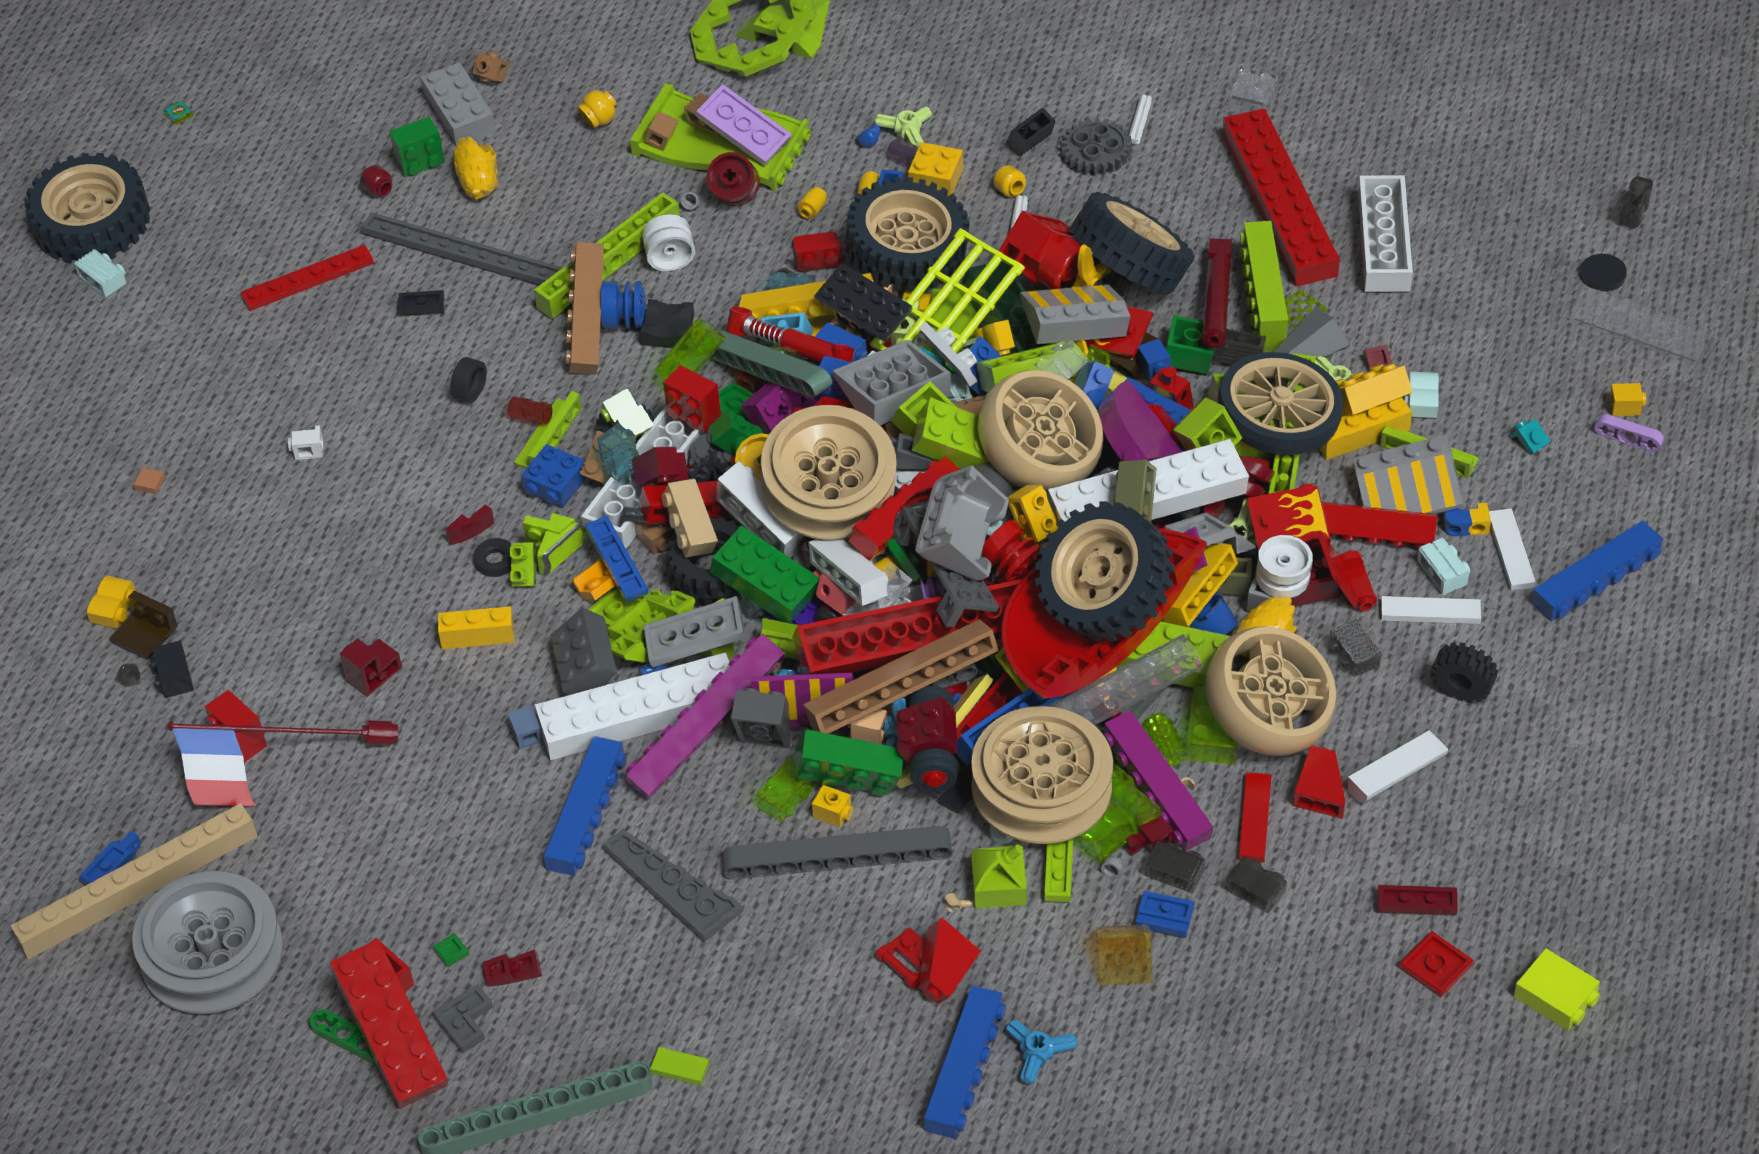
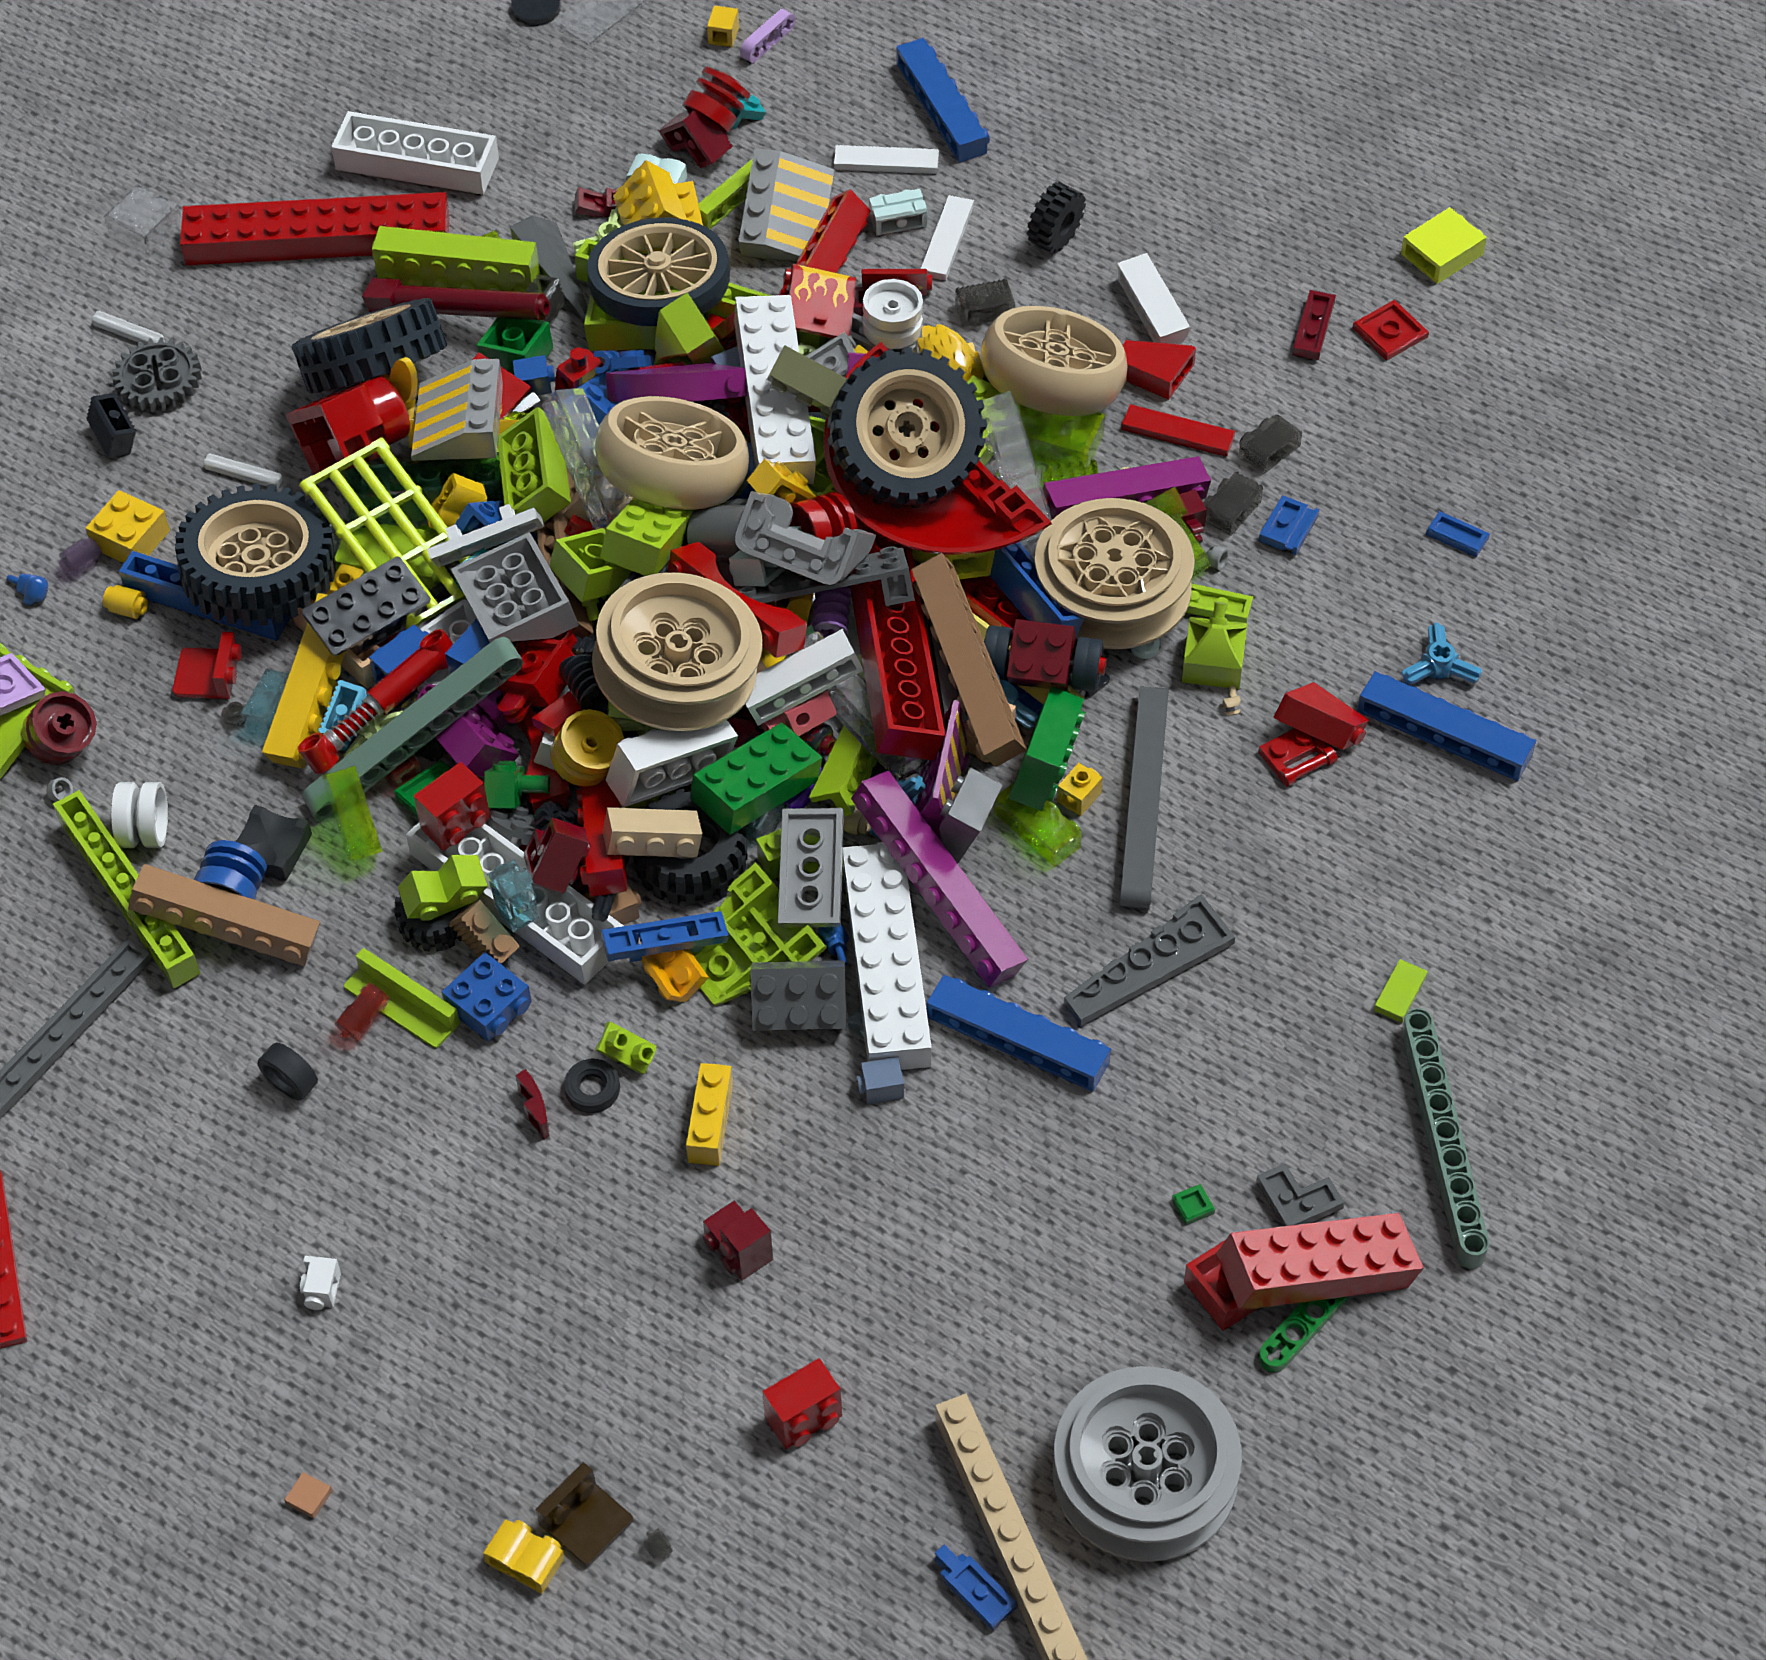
camera: 80 degrees left, 5 degrees up
(172, 669) = (669, 1484): black brick -> none
(216, 764) = (859, 1419): flag -> none
(421, 302) = (110, 1119): black plate -> none
(508, 970) = (1234, 1141): dark red slope -> none
(553, 539) = (602, 1001): lime piece -> none
(812, 203) = (124, 662): yellow brick -> none
(906, 124) = (35, 546): yellowish green bush -> none
(1009, 181) = (178, 463): yellow head -> none
(1124, 954) = (1333, 565): clear yellow slope -> none
(1162, 399) = (623, 360): none -> blue plate
(1197, 1049) = (1457, 534): none -> blue tile
(1468, 521) = (844, 175): leg -> none
(1473, 407) = (698, 134): none -> dark red brick
(1507, 402) = (719, 95): none -> red wheel

